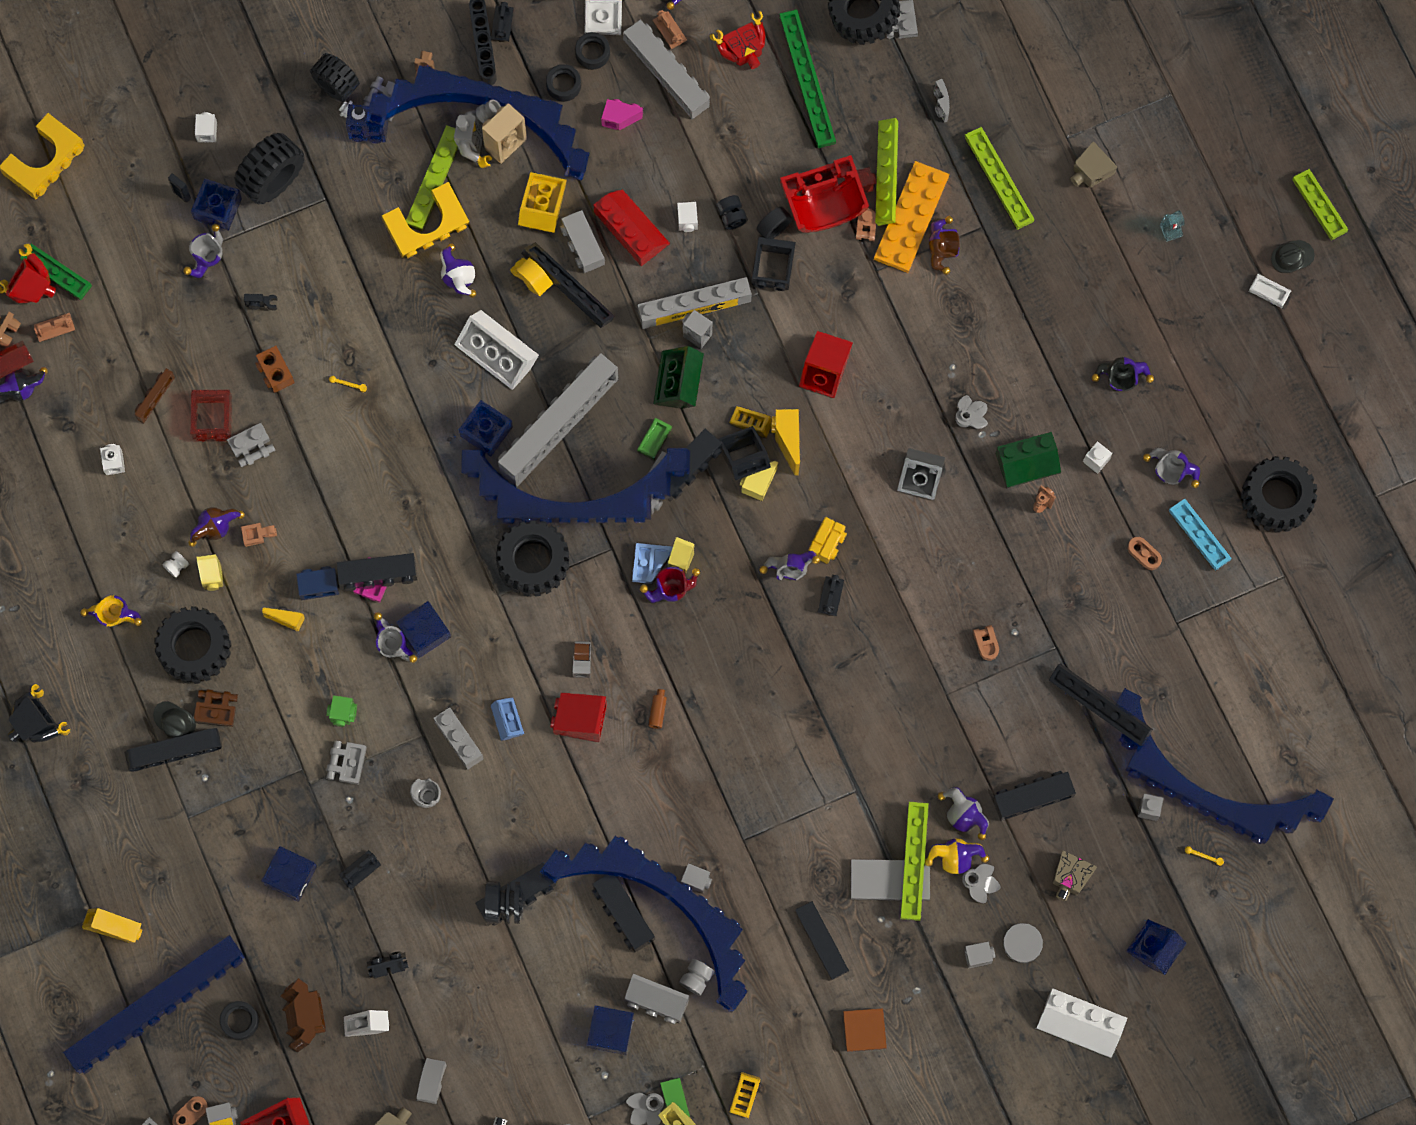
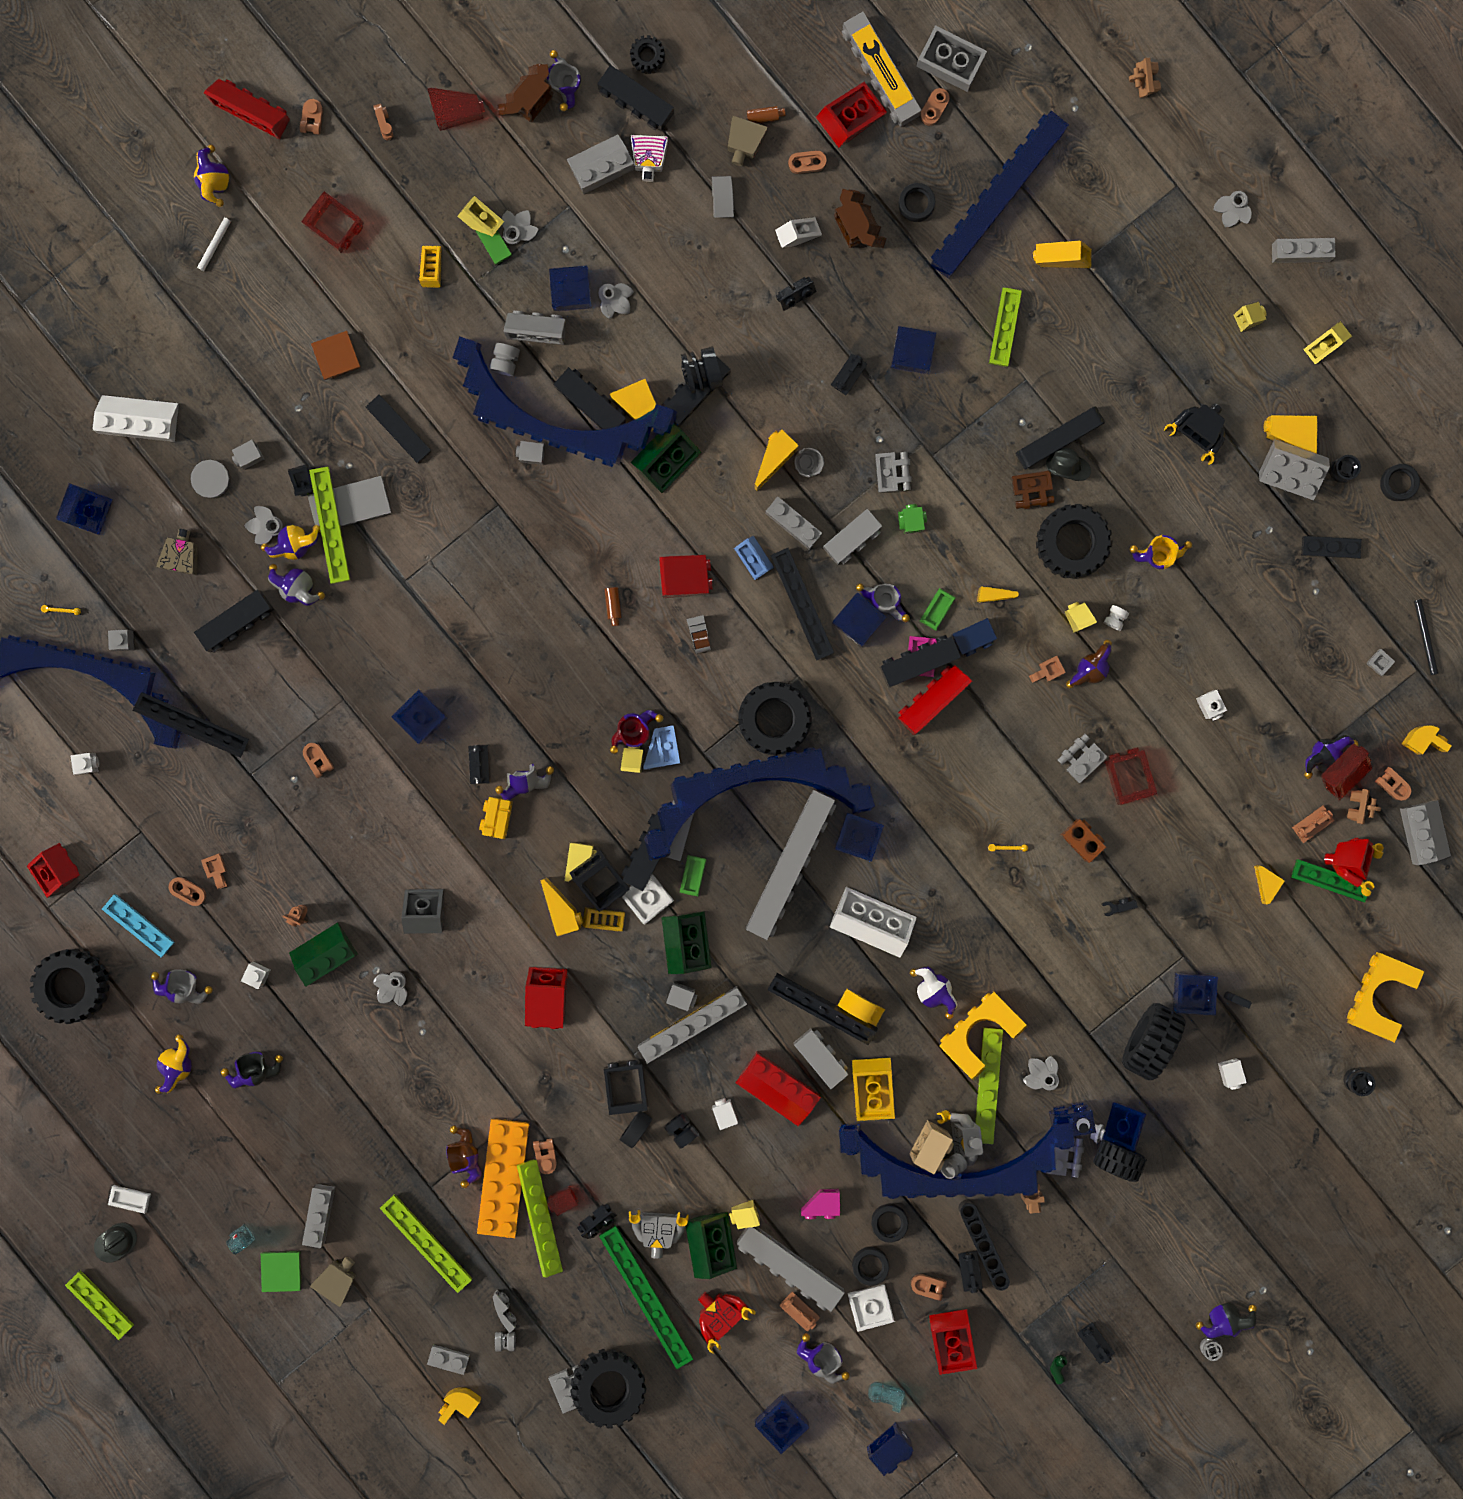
camera: 165 degrees right, 15 degrees up
(92, 88) = (1359, 1082): none -> black wheel
(114, 283) = (1268, 884): none -> yellow slope
(154, 395) = (1193, 780): reddish brown plate -> none
(191, 872) = (1005, 327): none -> lime plate
(205, 251) = (1190, 941): light grey piece -> none
(319, 106) = (1124, 1125): none -> clear blue slope
(336, 1092) = (806, 160): none -> nougat plate
(344, 621) = (937, 609): none -> bright green tile
(375, 533) = (937, 697): none -> red slope
(383, 176) = (1040, 1072): none -> light grey plate
(405, 709) = (853, 537): none -> light grey brick
(455, 806) = (777, 453): none -> yellow slope
(473, 661) = (802, 604): none -> black plate
(550, 23) = (921, 1285): none -> nougat plate
(565, 834) = (666, 458): none -> dark green slope
(567, 1006) = (617, 301): none -> light grey plate
(577, 899) = (635, 399): none -> yellow slope
(694, 122) = (745, 1215): none -> light yellow slope
(696, 423) = (649, 902): none -> white tile
(734, 106) = (711, 1245): none -> dark green slope
(778, 132) = (658, 1230): none -> light grey torso
(822, 199) = (594, 1169): red piece -> none
(827, 157) = (603, 1218): none -> black hinge
(875, 653) = (419, 716): none -> clear blue brick
(931, 913) = (301, 480): none -> black bracket
(952, 76) = (500, 1341): none -> light grey wheel
(1004, 36) = (459, 1399): none -> yellow brick
(1006, 73) = (448, 1359): none -> light grey piece
(1093, 227) = (318, 1216): none -> light grey brick
(1112, 568) = (214, 867): none -> nougat plate
(1142, 190) = (281, 1271): none -> bright green tile
(1196, 396) = (174, 1065): none -> piece
(1214, 699) = (84, 763): none -> white brick
(1269, 607) = (53, 869): none -> red slope

